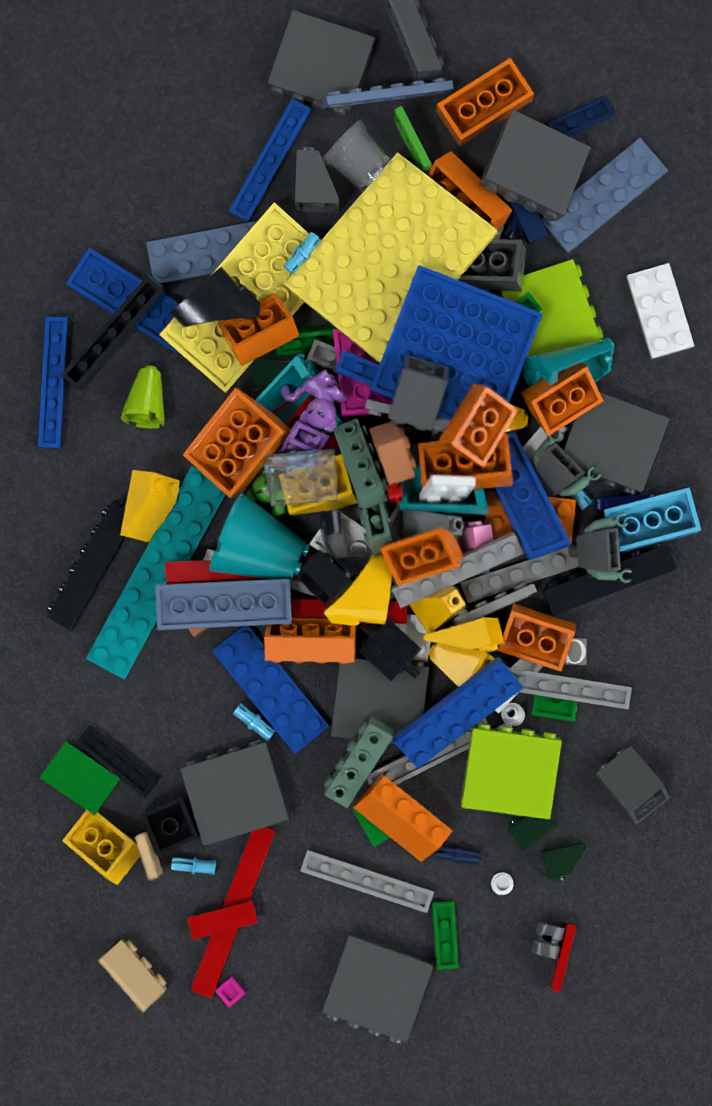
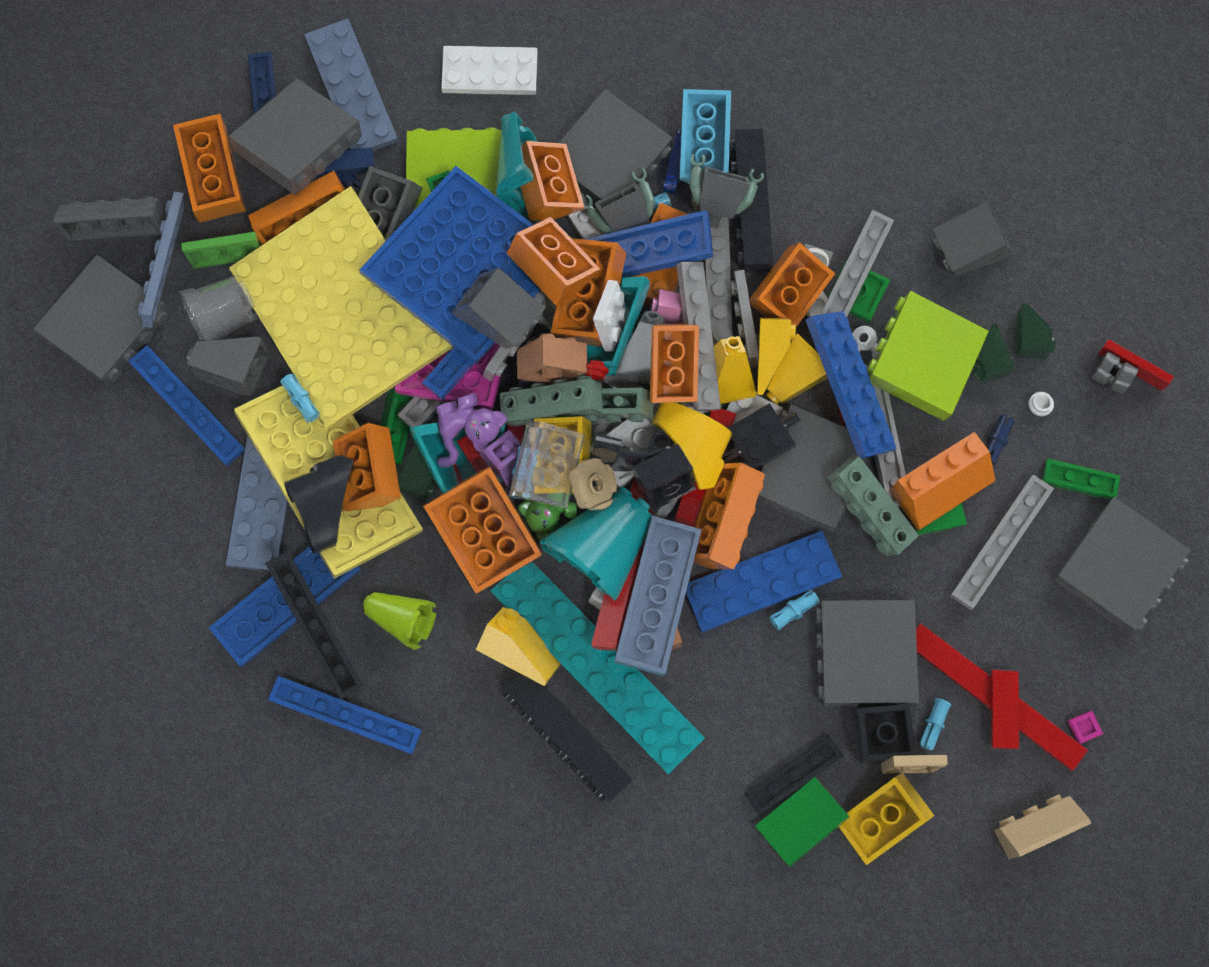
camera: 75 degrees left, 10 degrees down
(298, 511) = (583, 490): none -> tan plate

